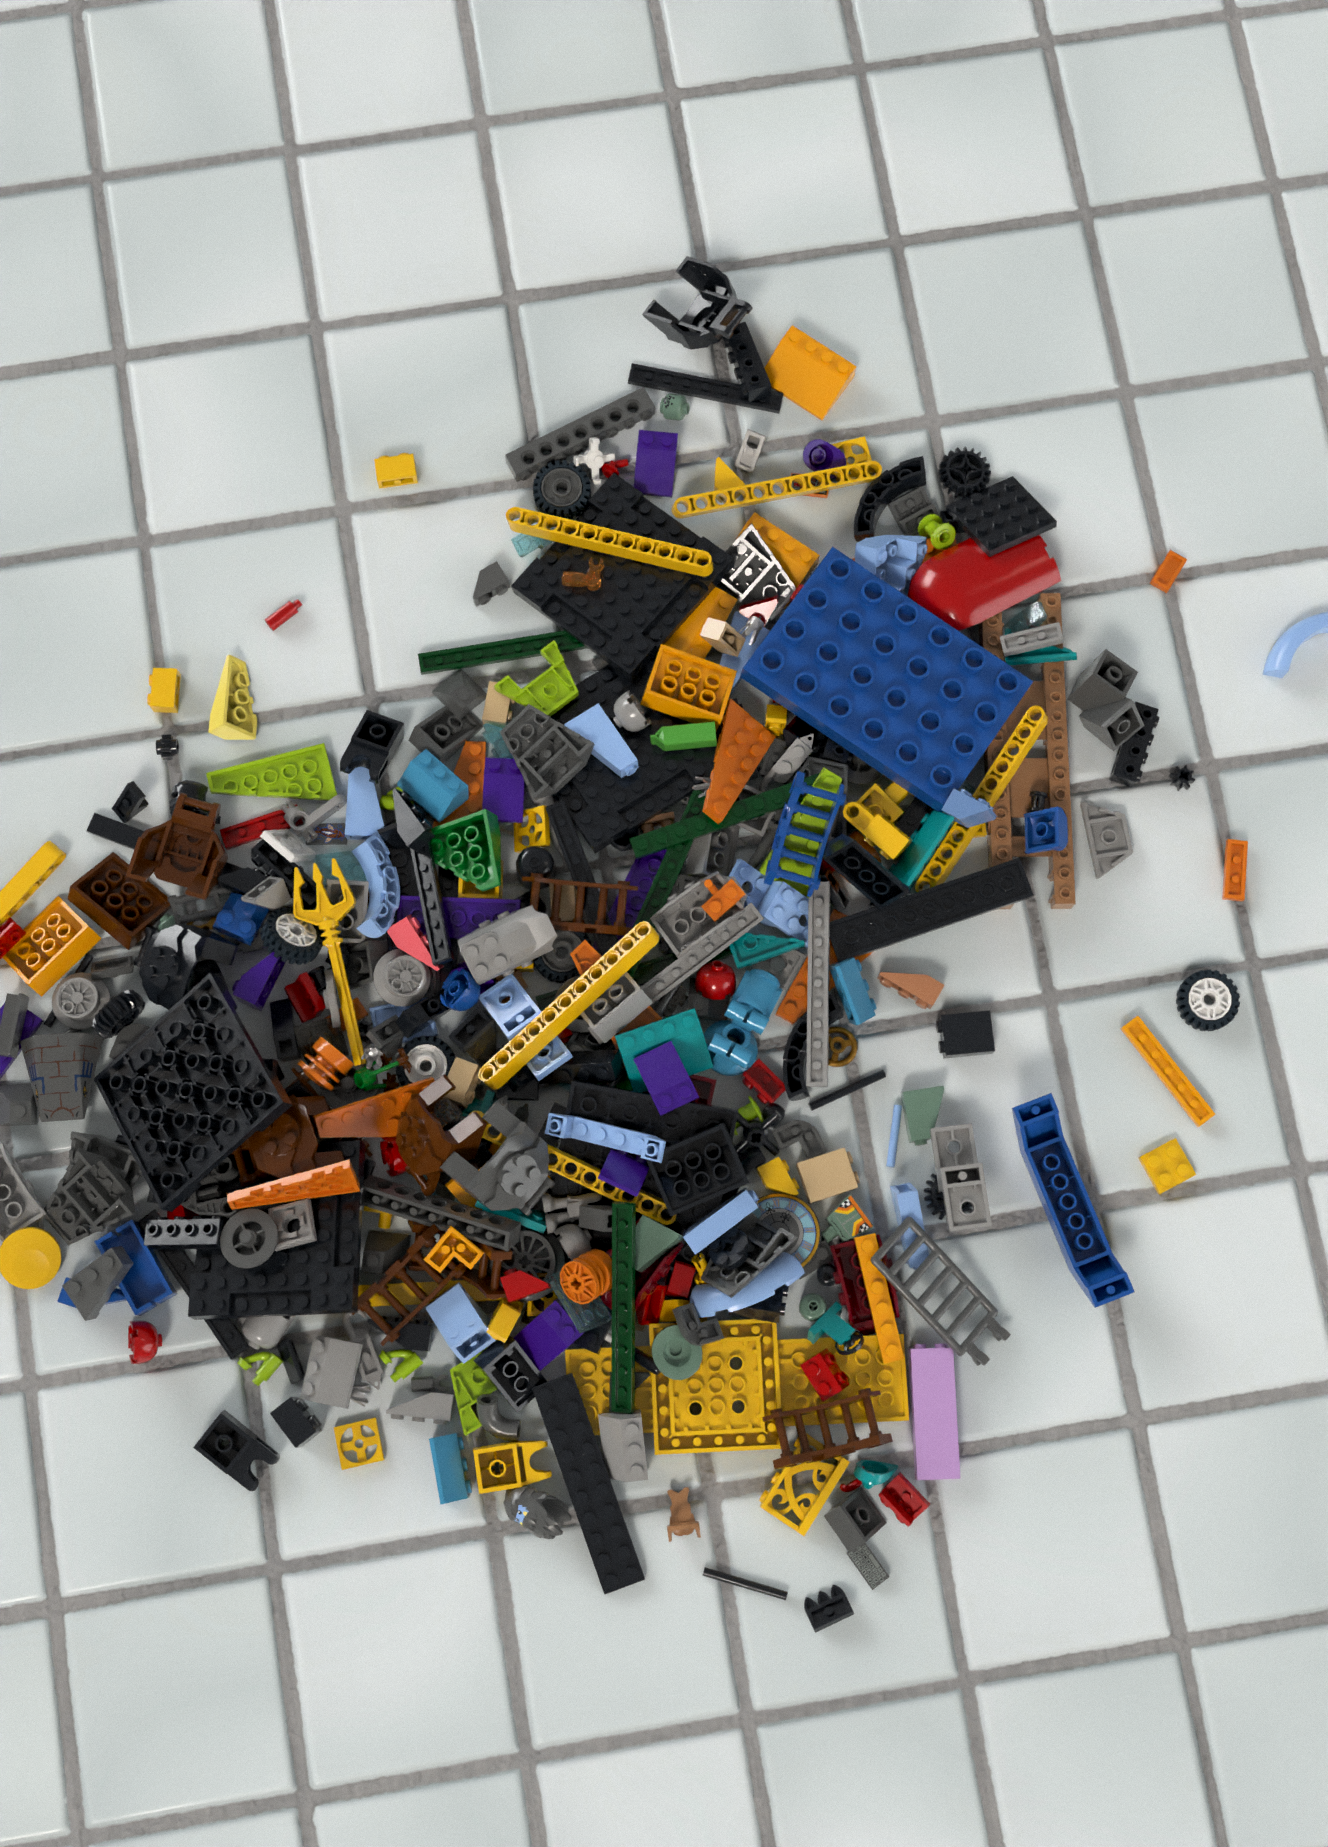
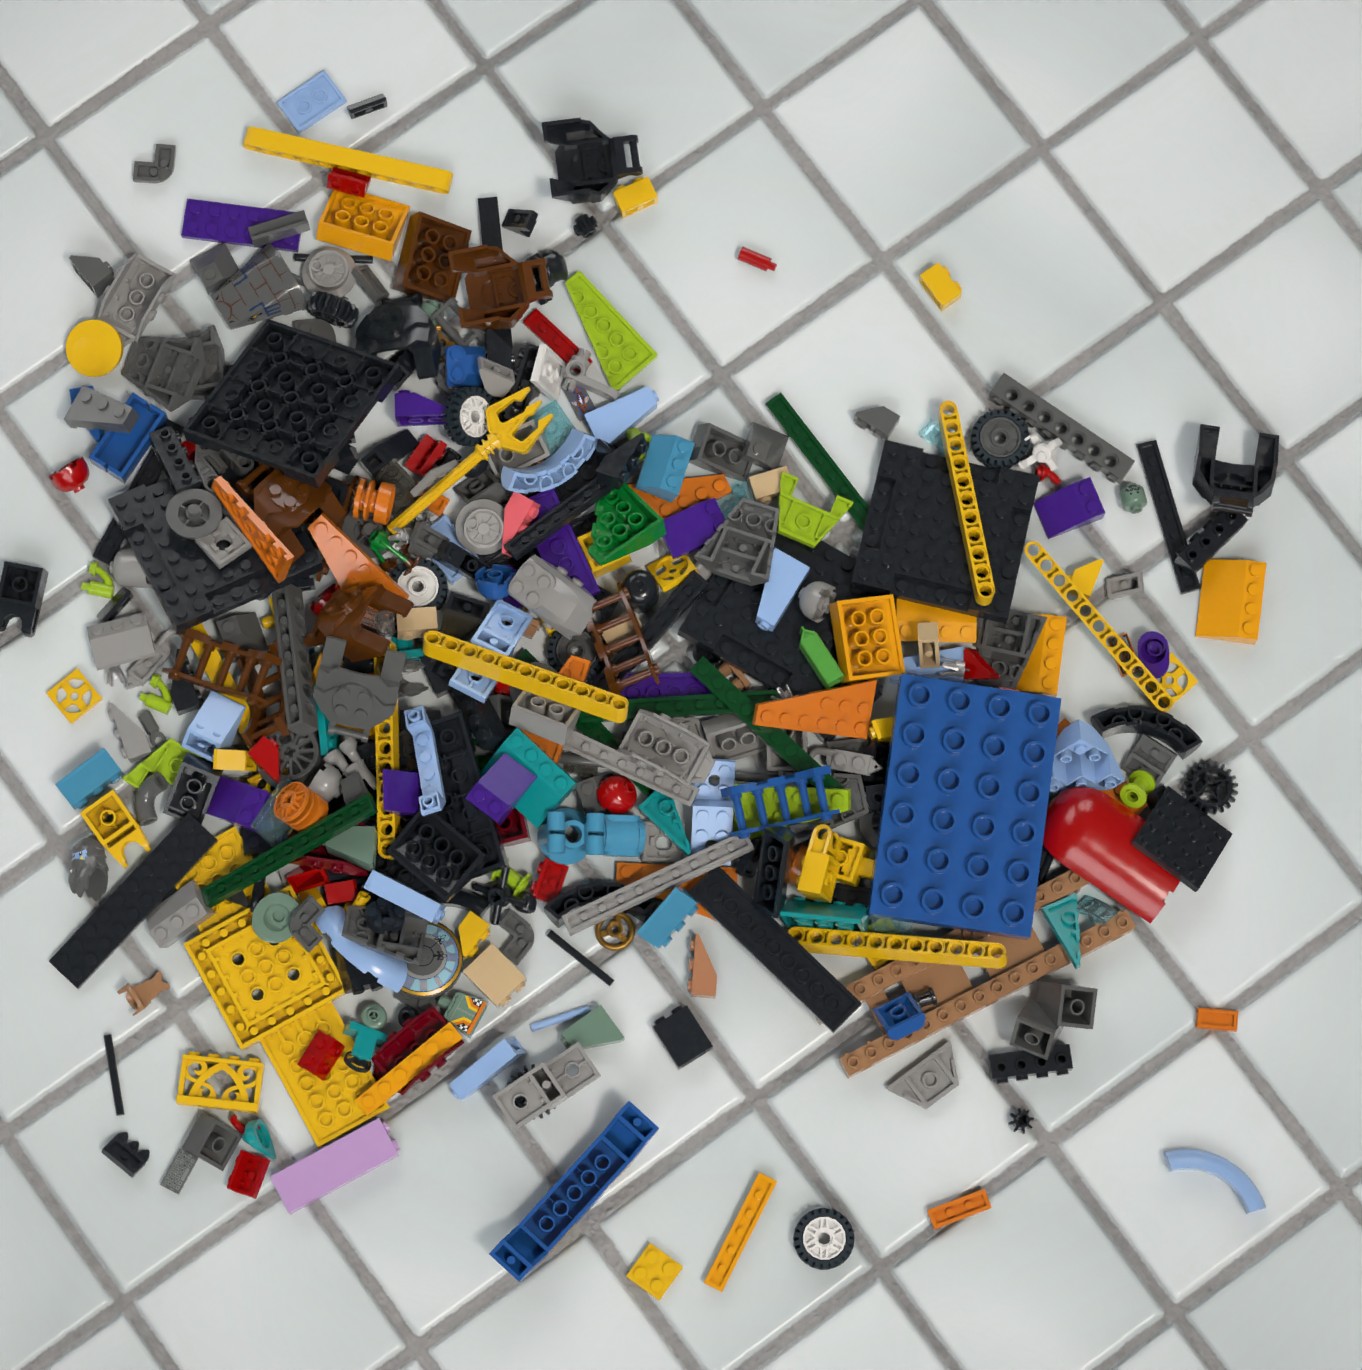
camera: 65 degrees right, 0 degrees up
(107, 711) = (588, 160): none -> black piece
(232, 708) = (649, 261): light yellow wedge -> none
(296, 1421) = (66, 634): black brick -> none
(373, 745) = (674, 397): black brick -> none
(453, 1245) = (270, 681): light orange brick -> none
(591, 579) = (922, 504): clear orange bar -> none
(722, 899) = (686, 760): orange plate -> none
(830, 1449) = (259, 1088): reddish brown fence -> none
(889, 1273) = (459, 1137): dark grey bar -> none
(967, 809) = (877, 931): medium blue slope -> none
(1031, 639) = (1073, 919): light grey plate -> none

